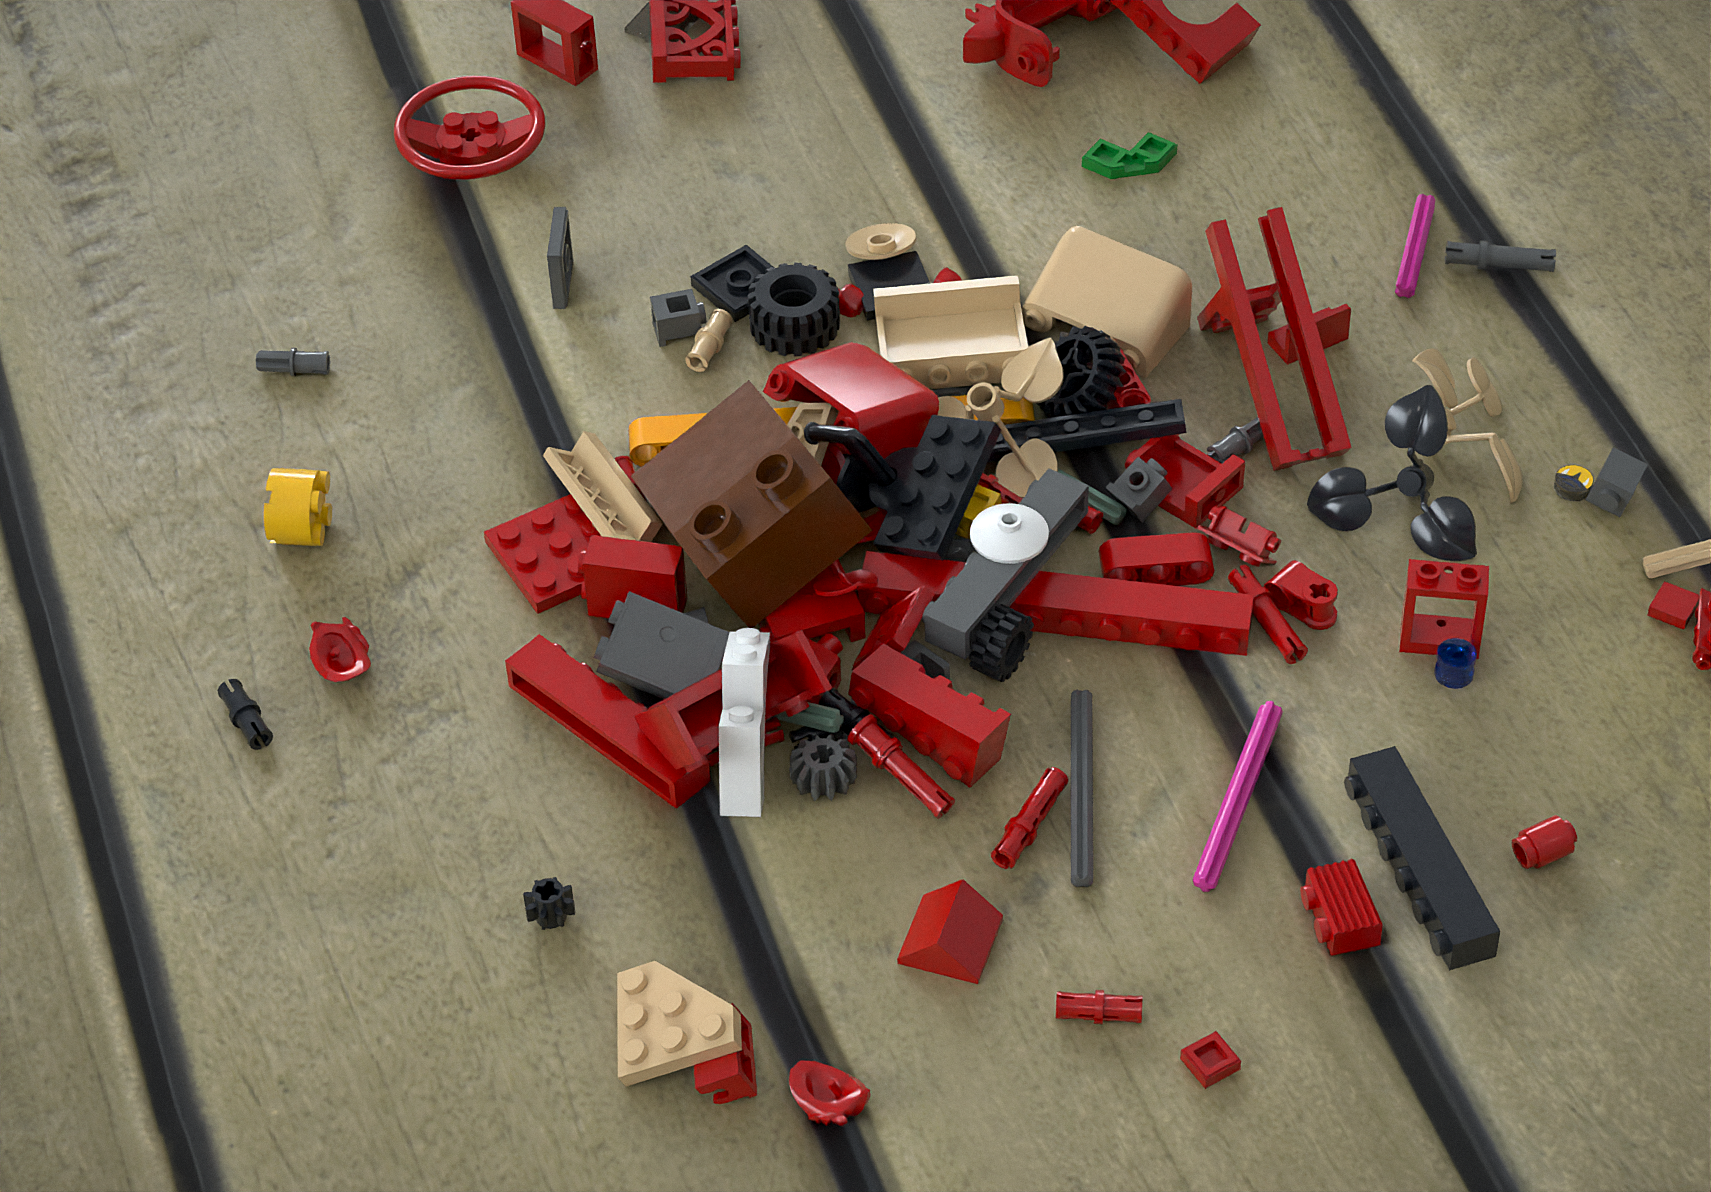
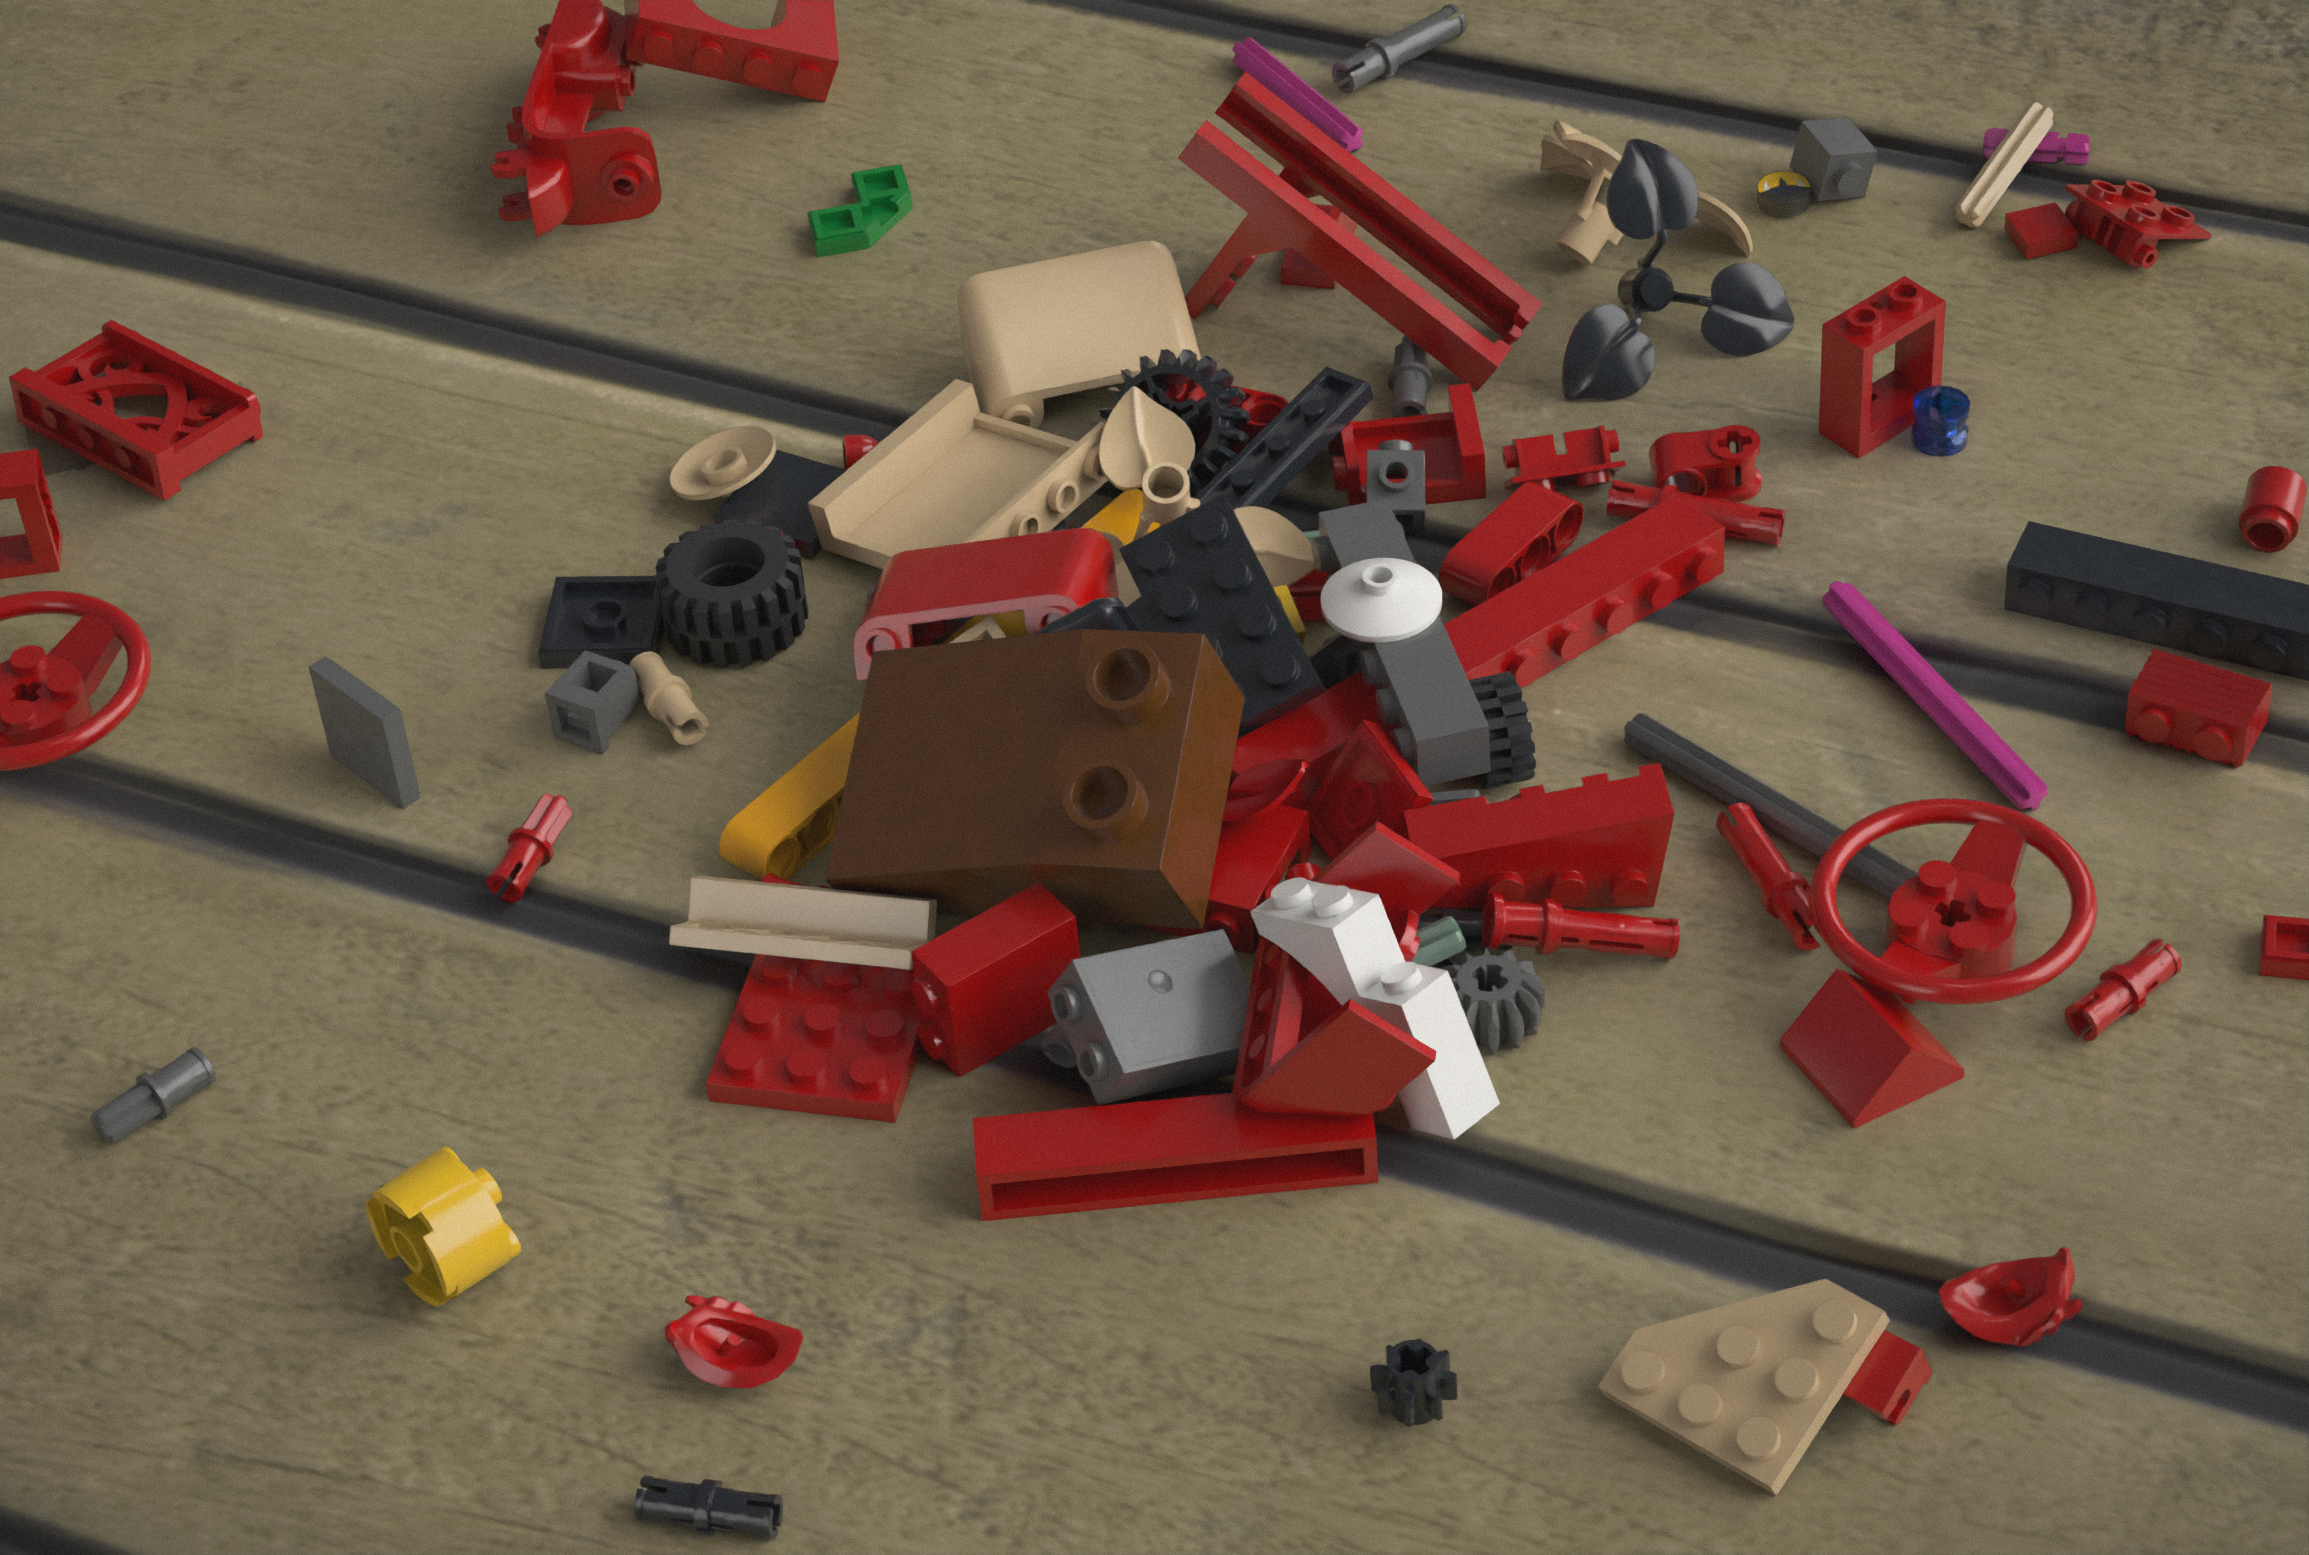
camera: 45 degrees left, 5 degrees down
(565, 366) = (530, 846): none -> red axle
(1066, 905) = (1958, 919): none -> red piece

